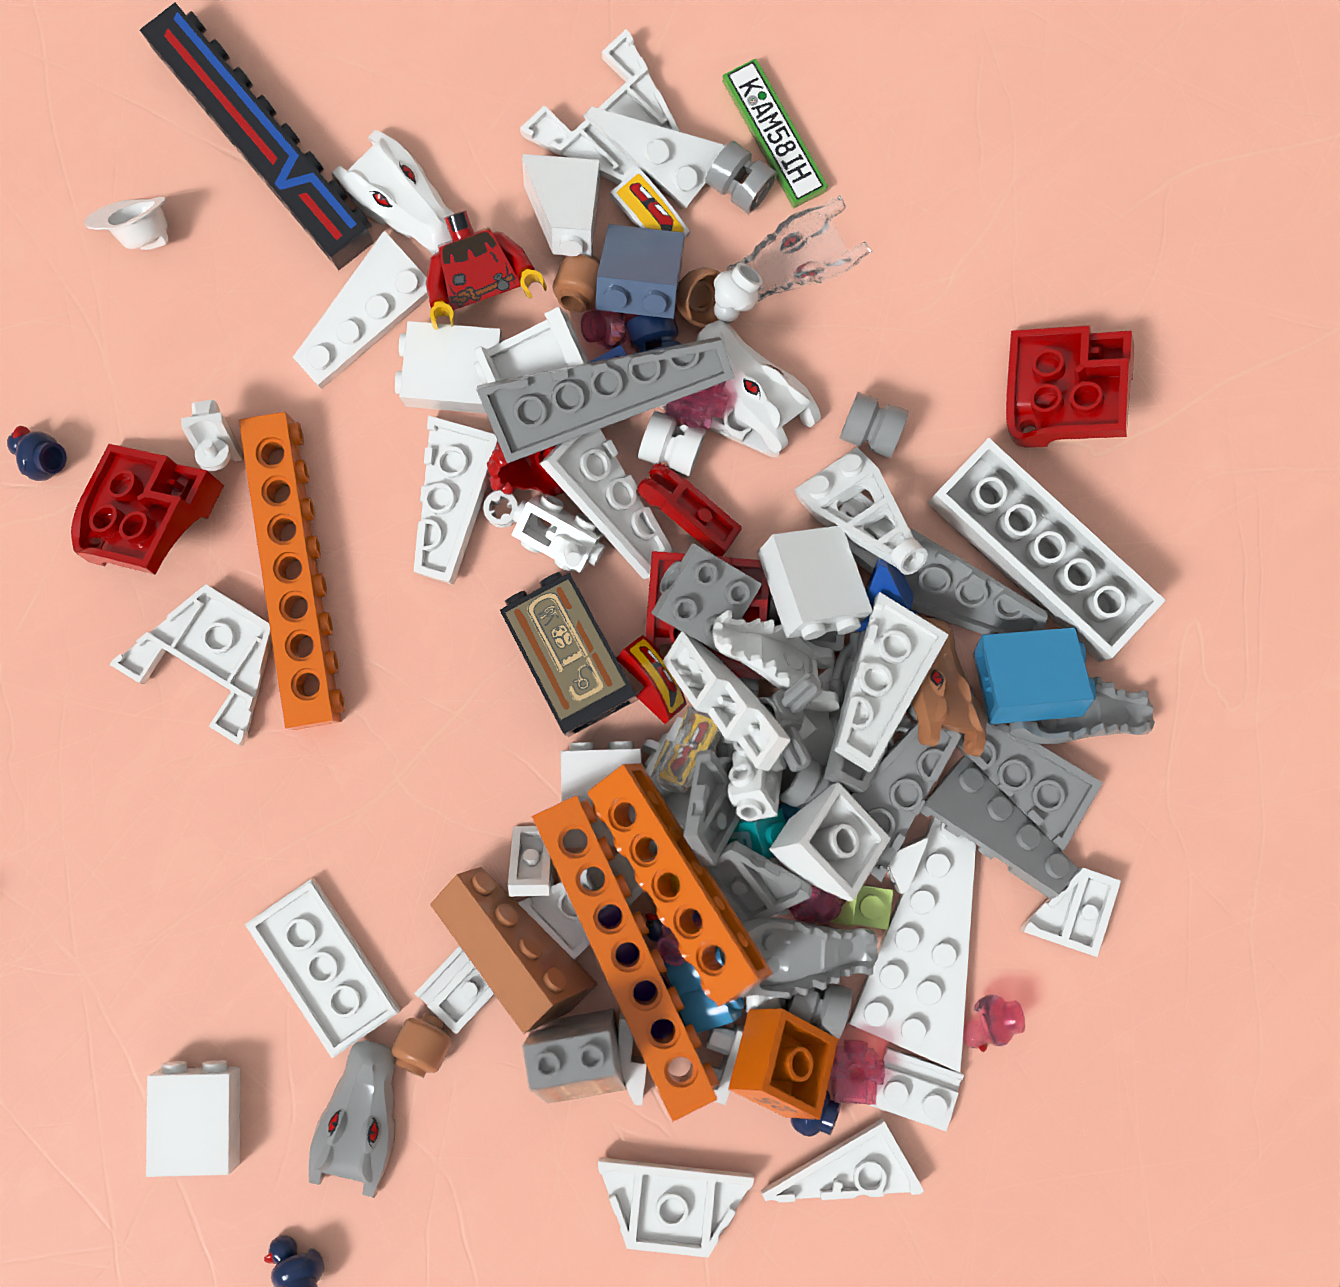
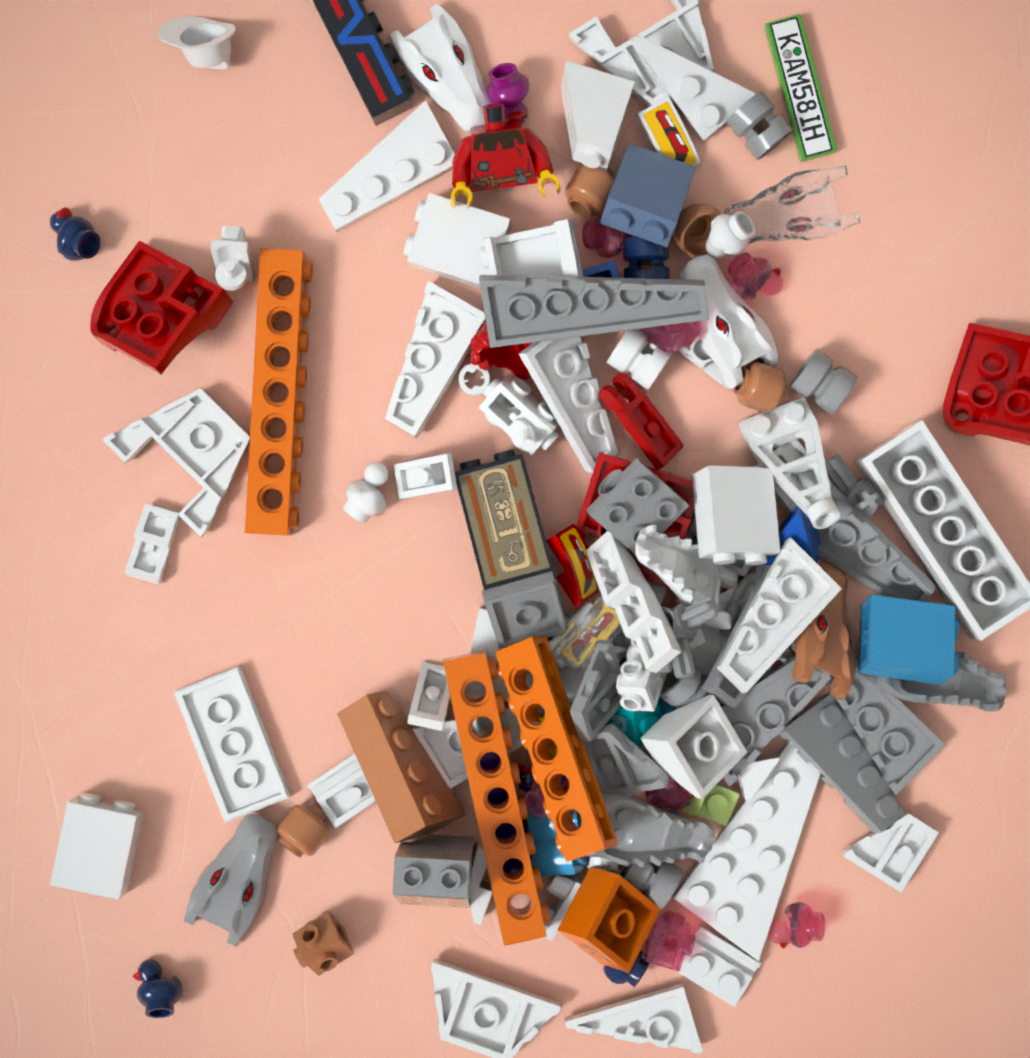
camera: 15 degrees right, 5 degrees up
(189, 766) = (152, 544): none -> white slope
(408, 660) = (363, 495): none -> white animal
(469, 1171) = (322, 944): none -> nougat brick
(471, 622) = (425, 476): none -> white slope
(472, 195) = (510, 89): none -> magenta animal
(609, 736) = (525, 609): none -> light grey plate
(772, 331) = (754, 274): none -> clear pink animal
(810, 446) = (762, 387): none -> nougat head
(942, 532) = (858, 492): none -> light grey axle

